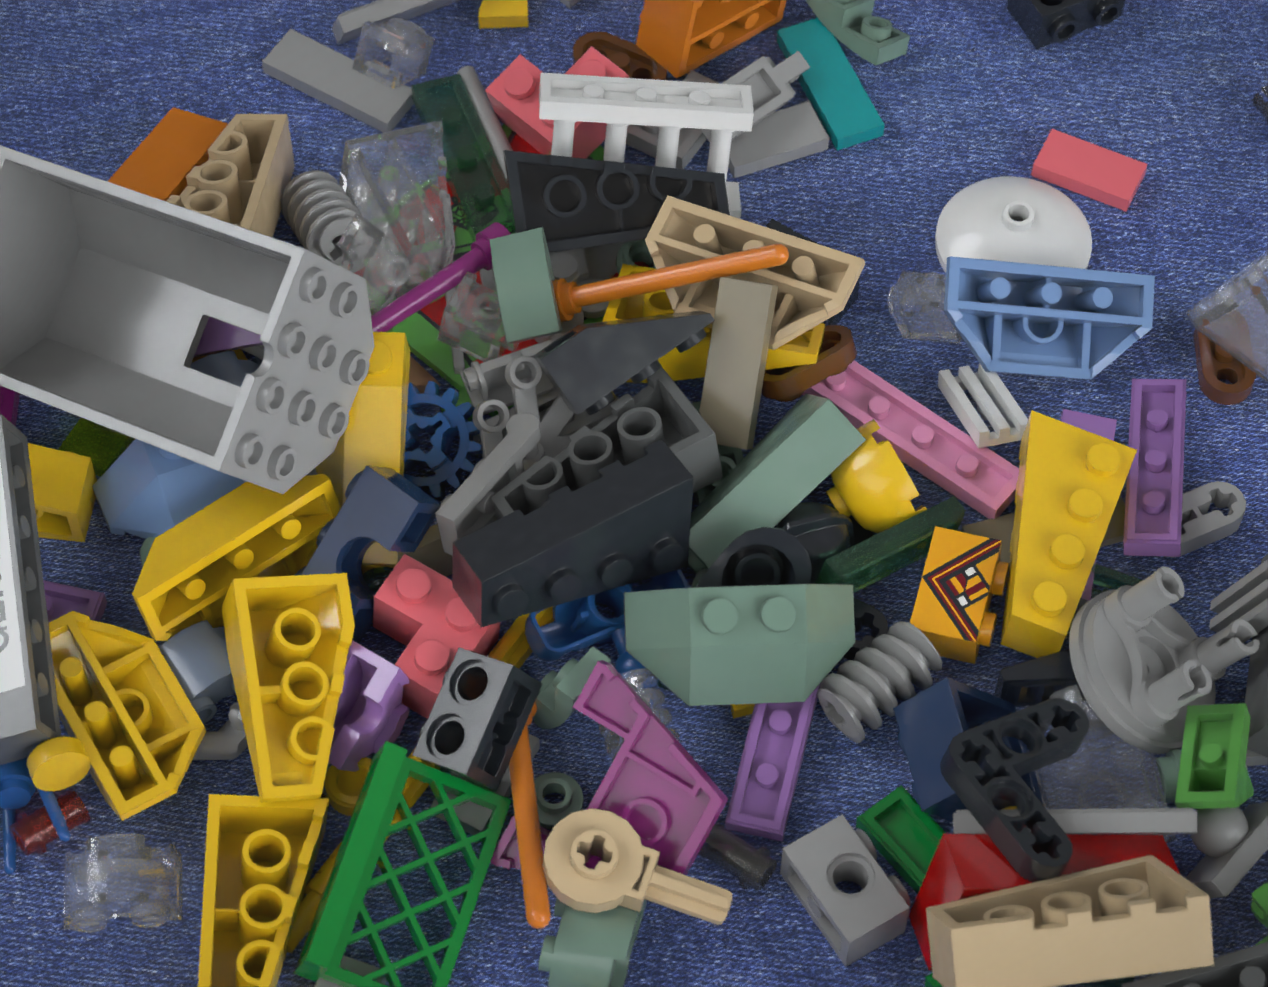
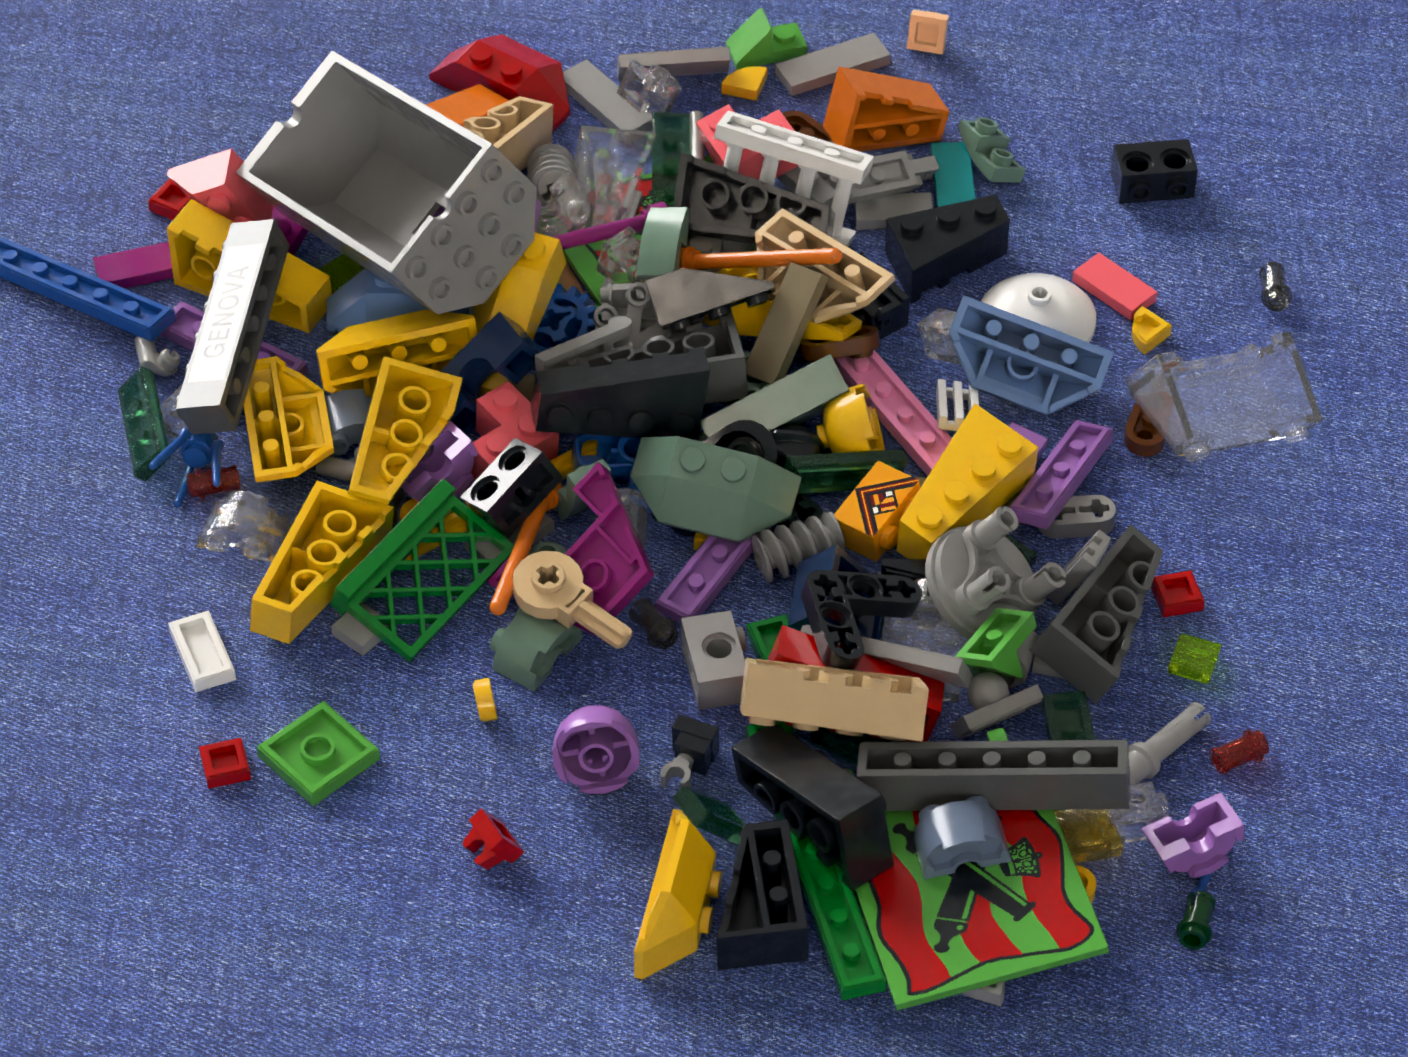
camera: 20 degrees right, 10 degrees down
(58, 763) = (229, 439): yellow tile -> none
(195, 74) = (508, 71): none -> red wedge
(861, 170) = (944, 241): none -> black wedge
(1156, 220) = (1148, 330): none -> yellow tile

